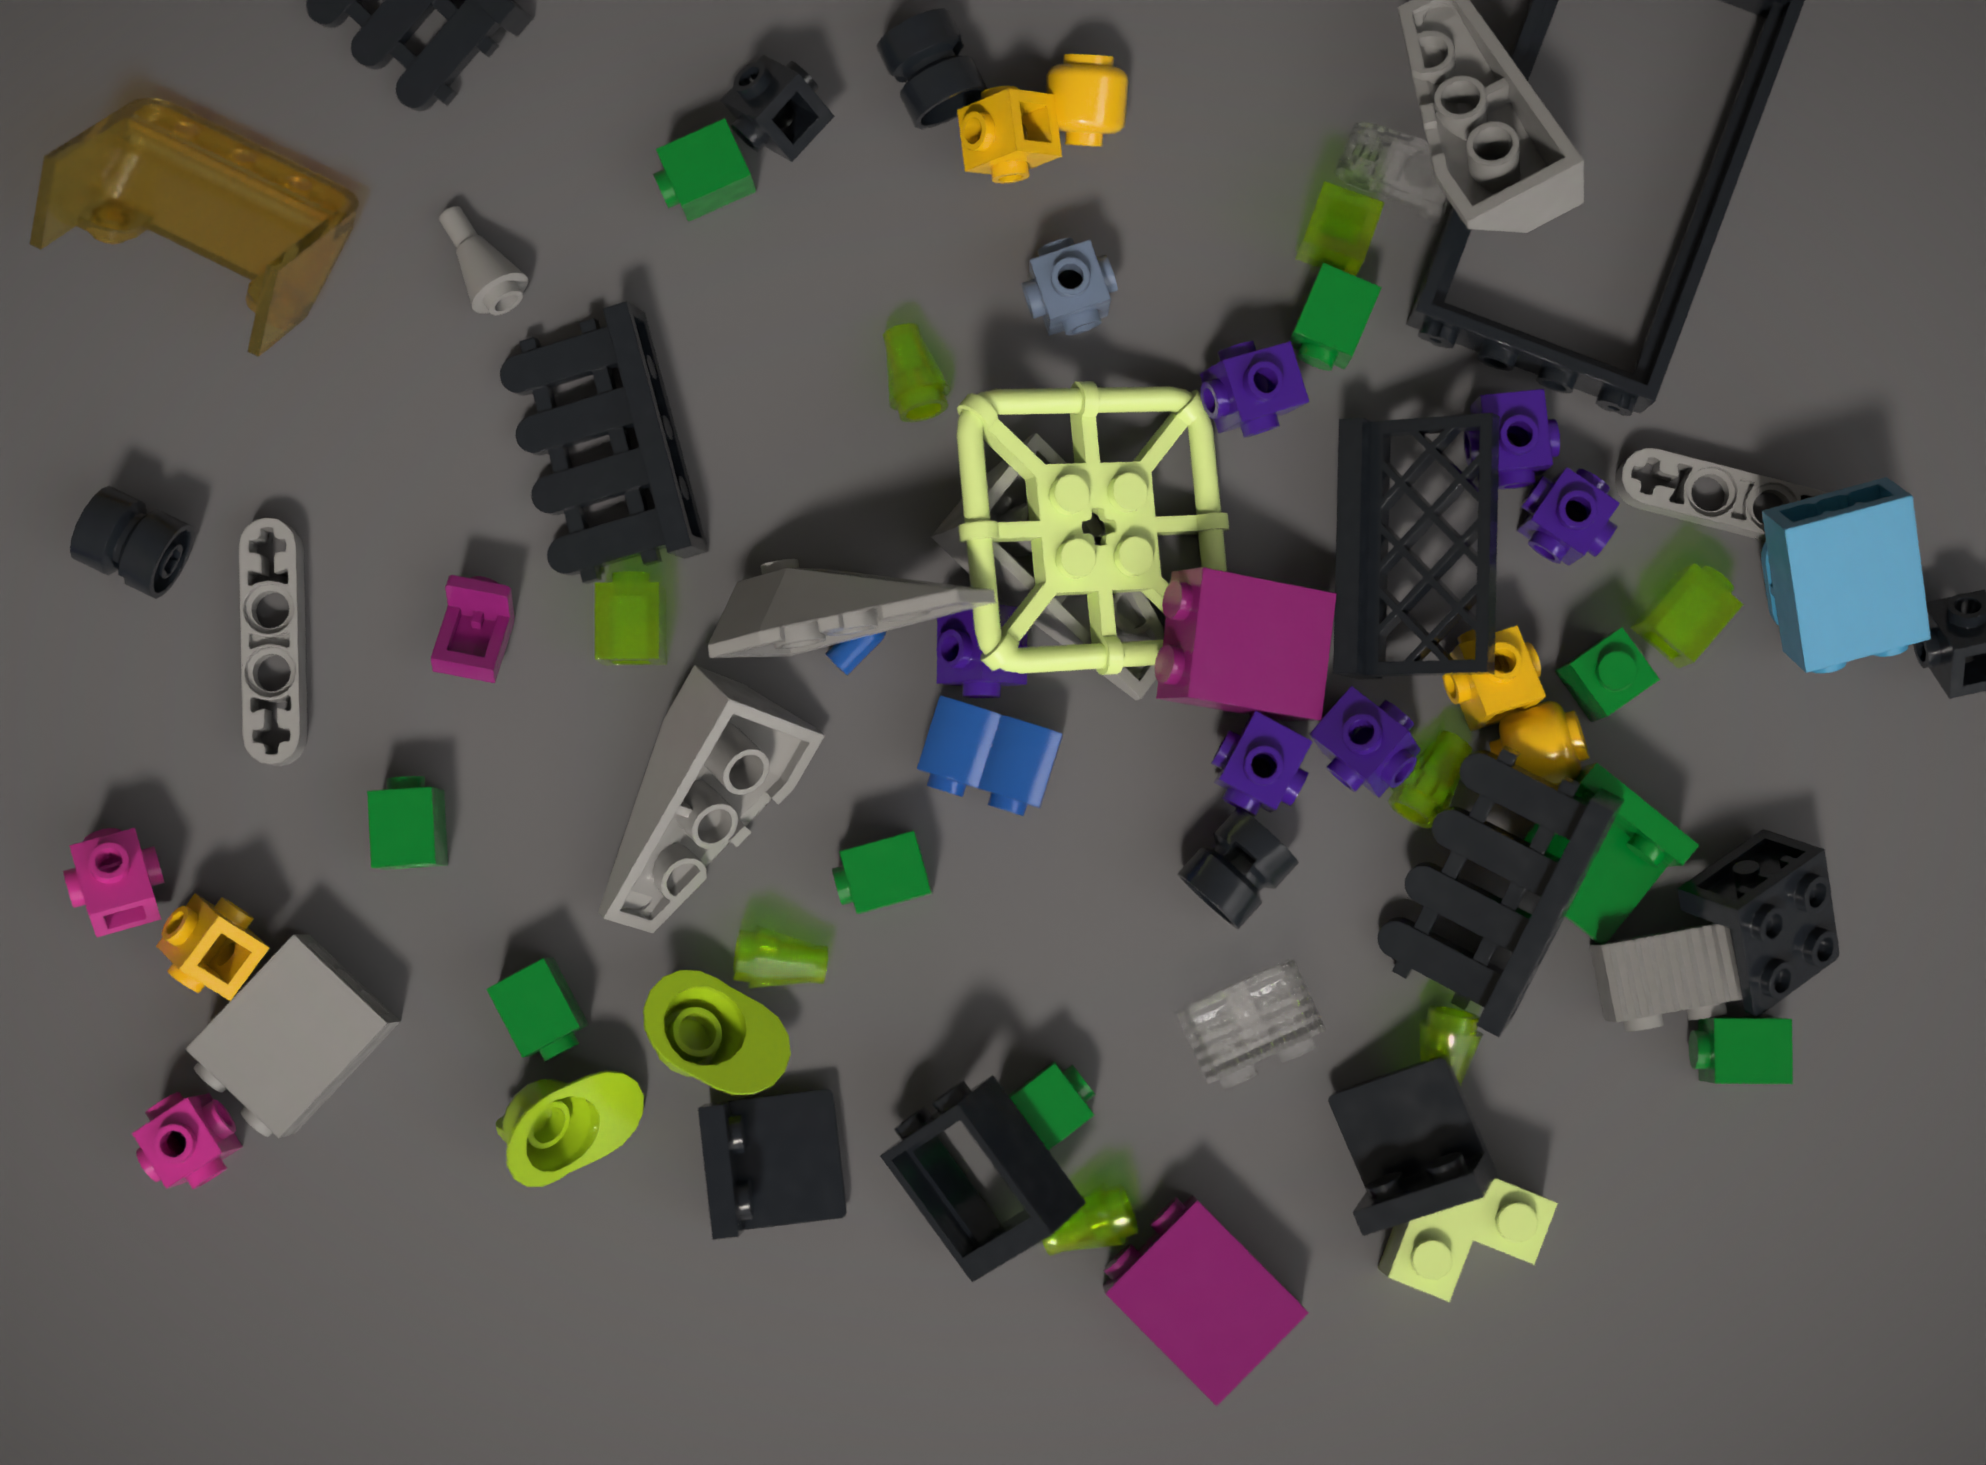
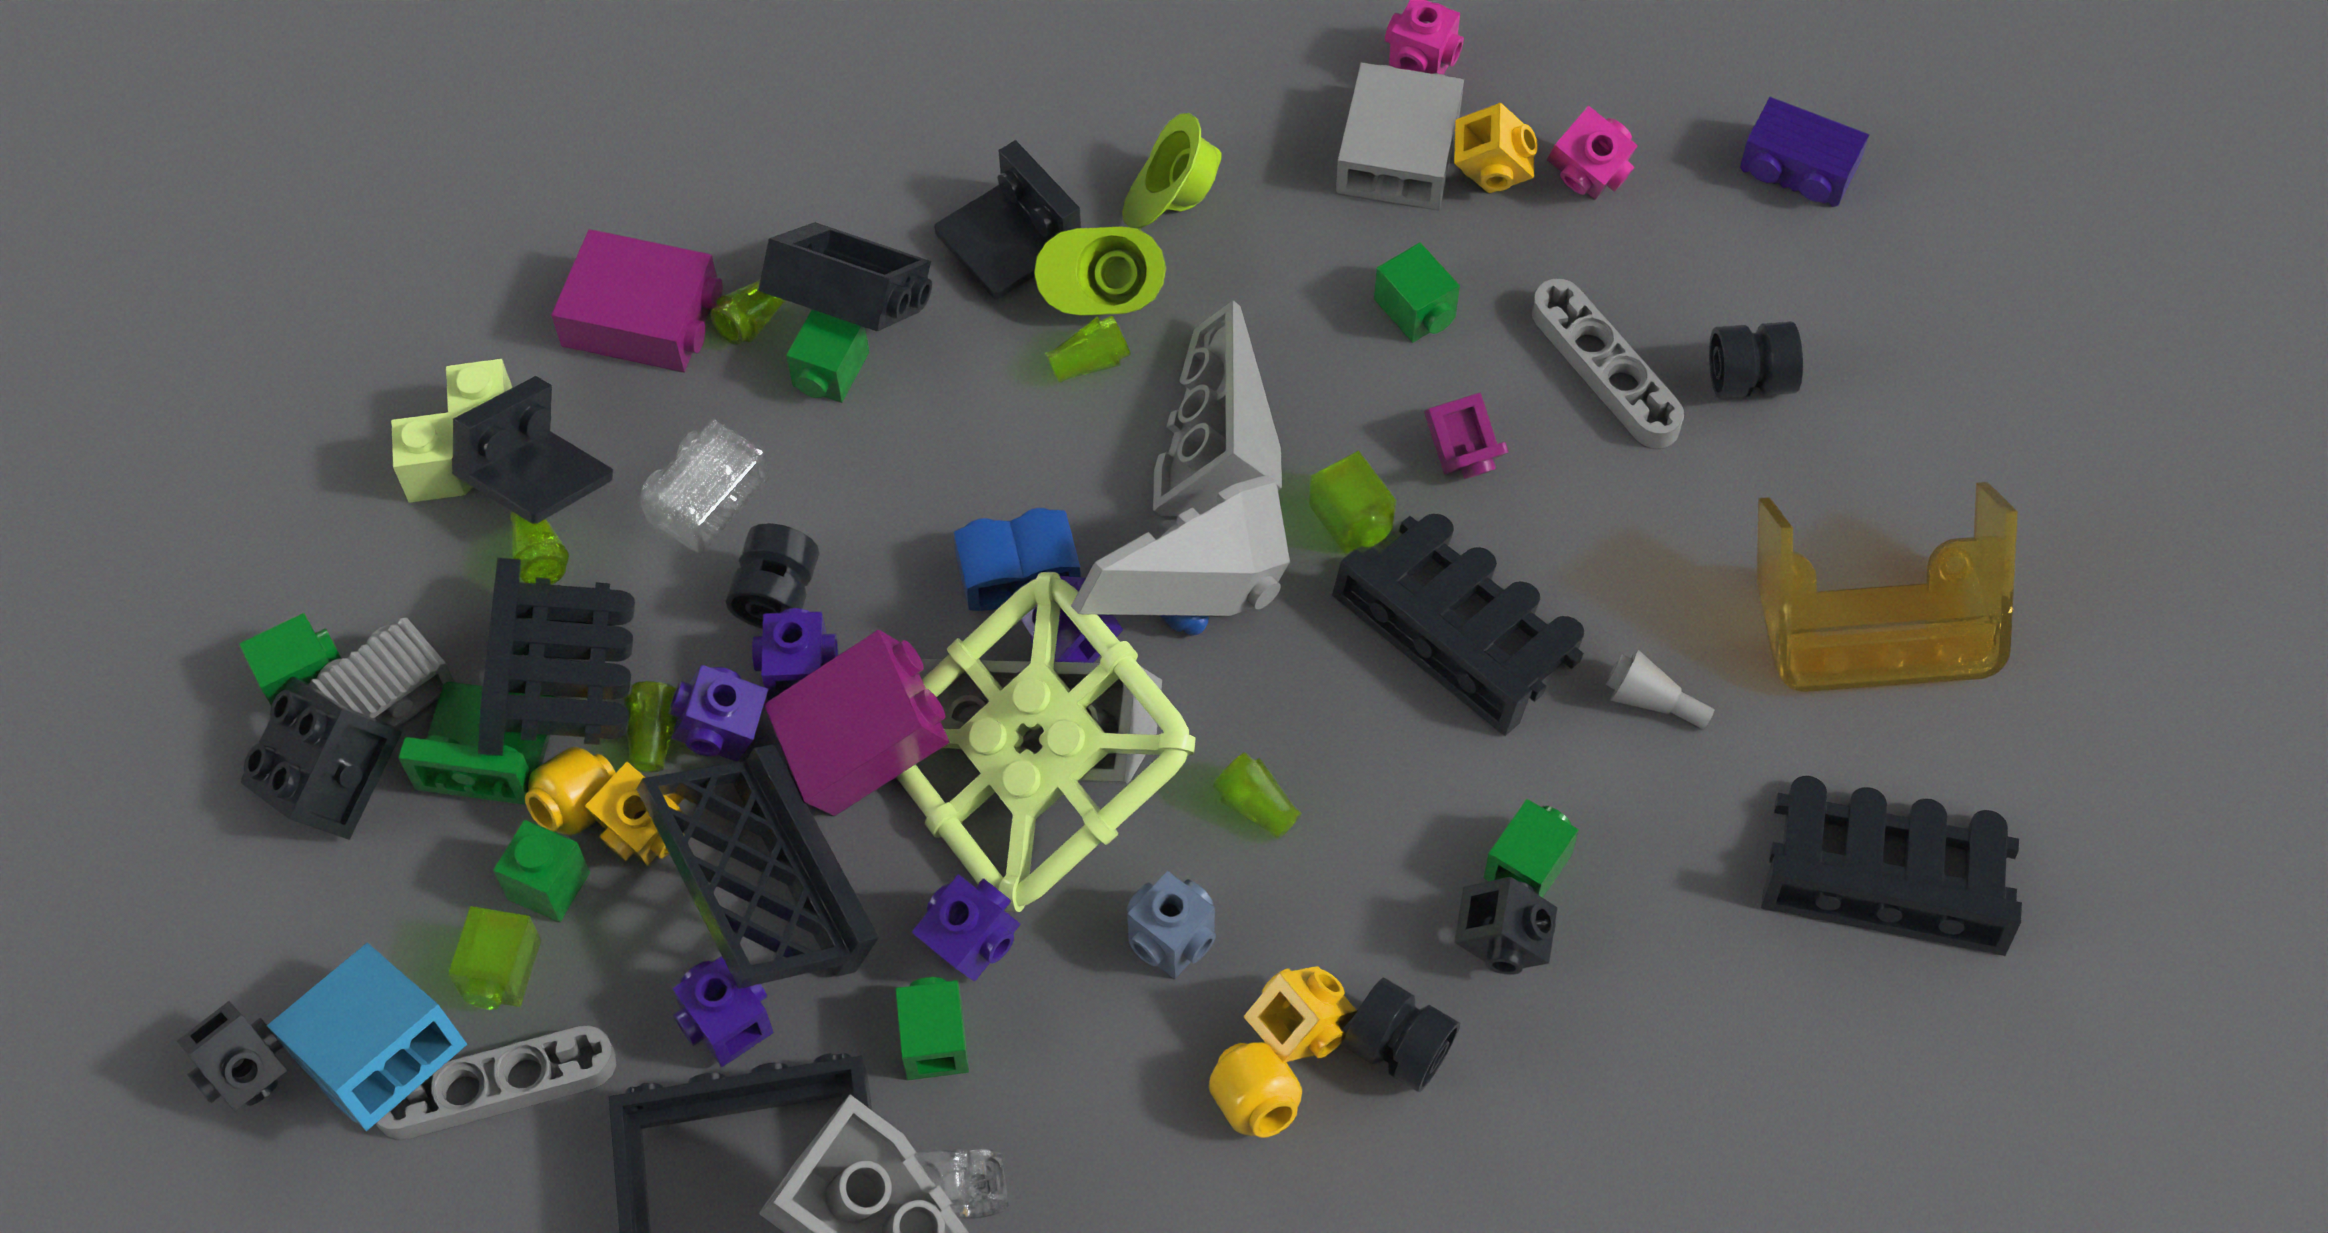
camera: 150 degrees right, 25 degrees down
(539, 1009) = (1241, 234): green brick -> none
(882, 873) = (1045, 440): green brick -> none
(1339, 229) = (966, 1091): clear neon green brick -> none
(1553, 532) = (637, 974): dark purple brick -> none

